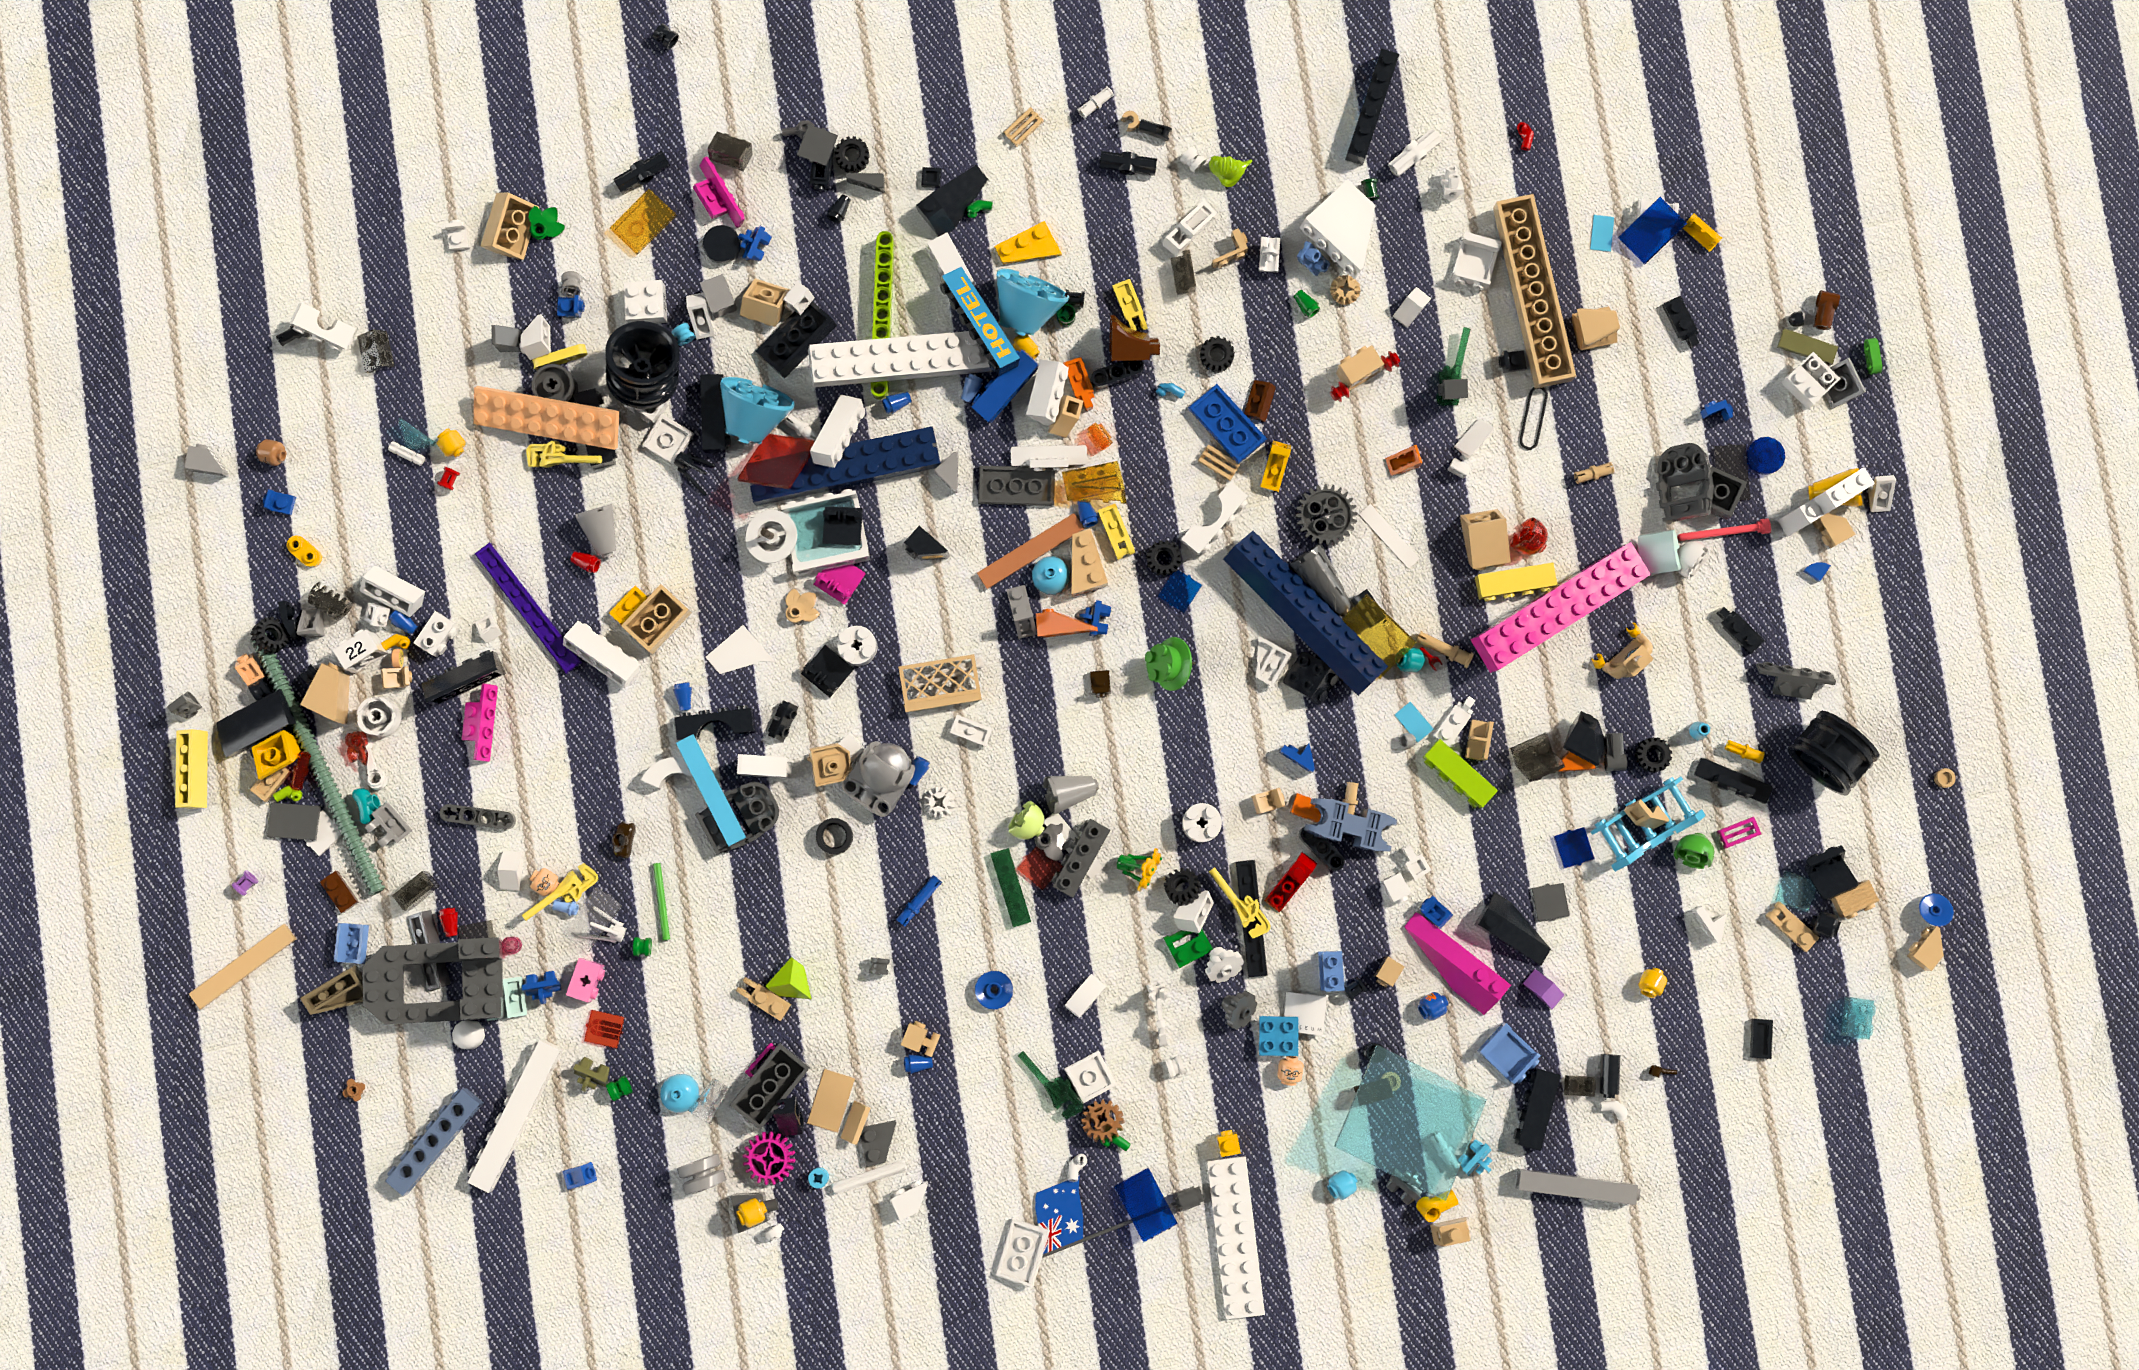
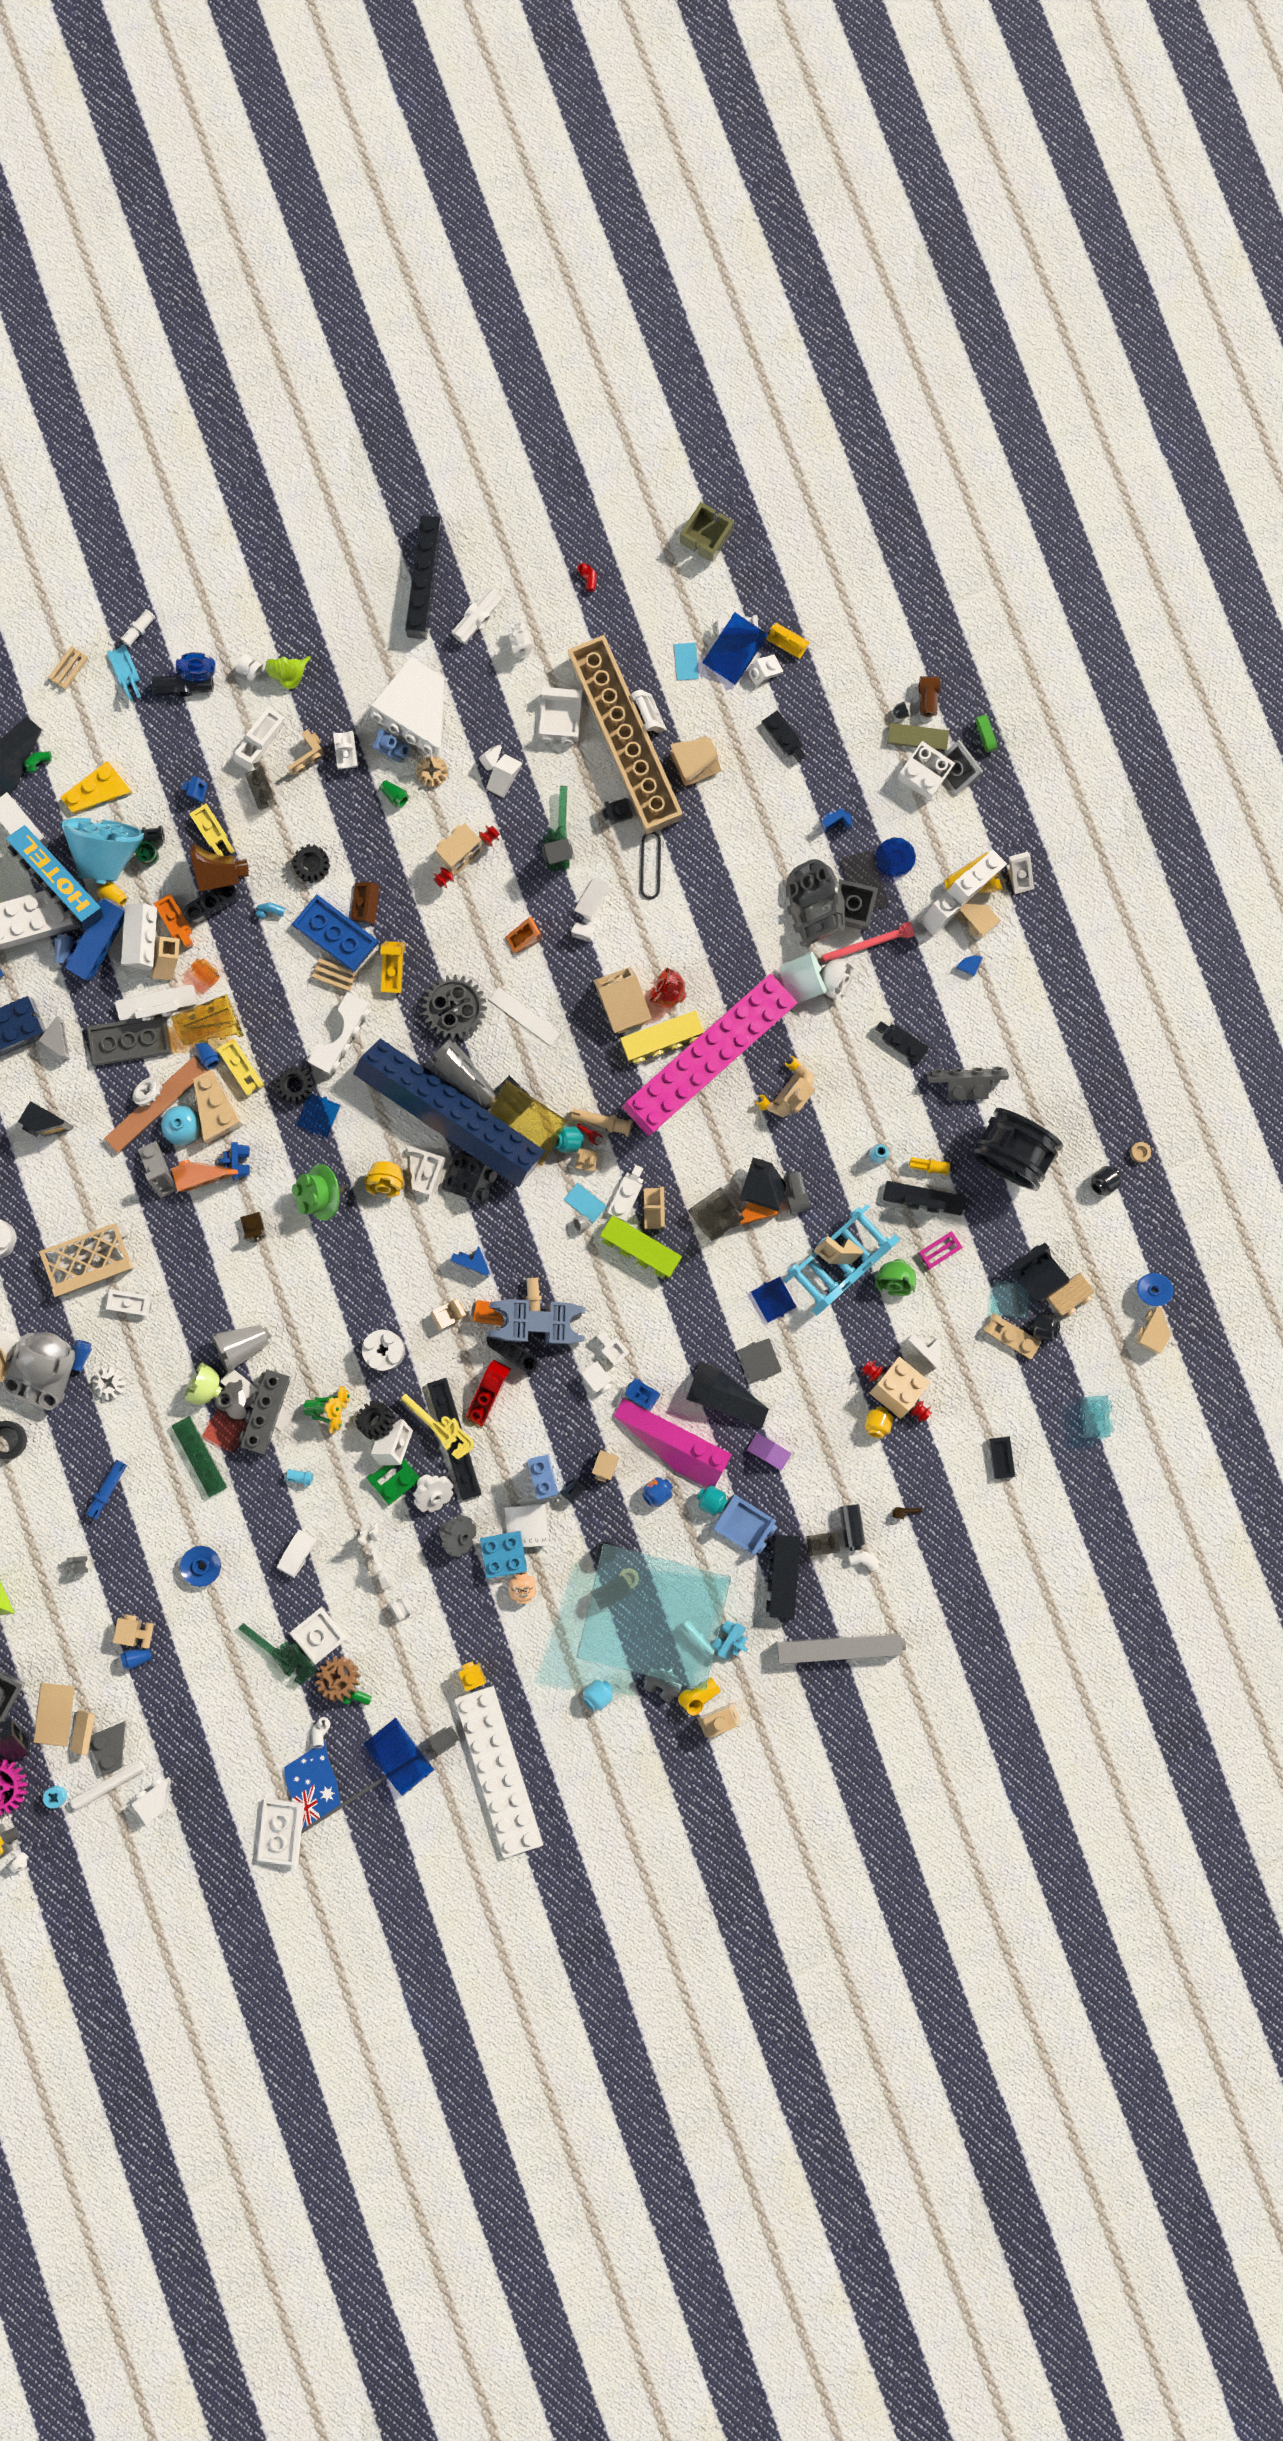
camera: 10 degrees left, 0 degrees up
(1024, 532) = (151, 1087): none -> white gear
(1075, 138) = (124, 669): none -> medium azure arm
(1101, 925) = (299, 1477): none -> medium azure pin
(1122, 263) = (195, 789): none -> blue tile
(1144, 149) = (195, 666): none -> clear blue tile
(1145, 126) = (193, 642): black piece -> none
(1232, 662) = (384, 1178): none -> yellow cone
(1370, 189) = (437, 662): dark green bush -> none
(1403, 287) = (490, 757): none -> white slope
(1423, 682) = (586, 1160): none -> tan tile
(1483, 1024) = (712, 1500): none -> teal head
(1560, 273) = (649, 711): none -> white plate
(1594, 472) = (722, 909): tan pin -> none
(1644, 118) = (704, 533): none -> olive piece
(1665, 754) = (841, 1176): black tyre -> none
(1675, 255) = (764, 669): none -> white bracket
(1678, 954) = (899, 1388): none -> tan brick
(1908, 798) = (1105, 1180): none -> black head

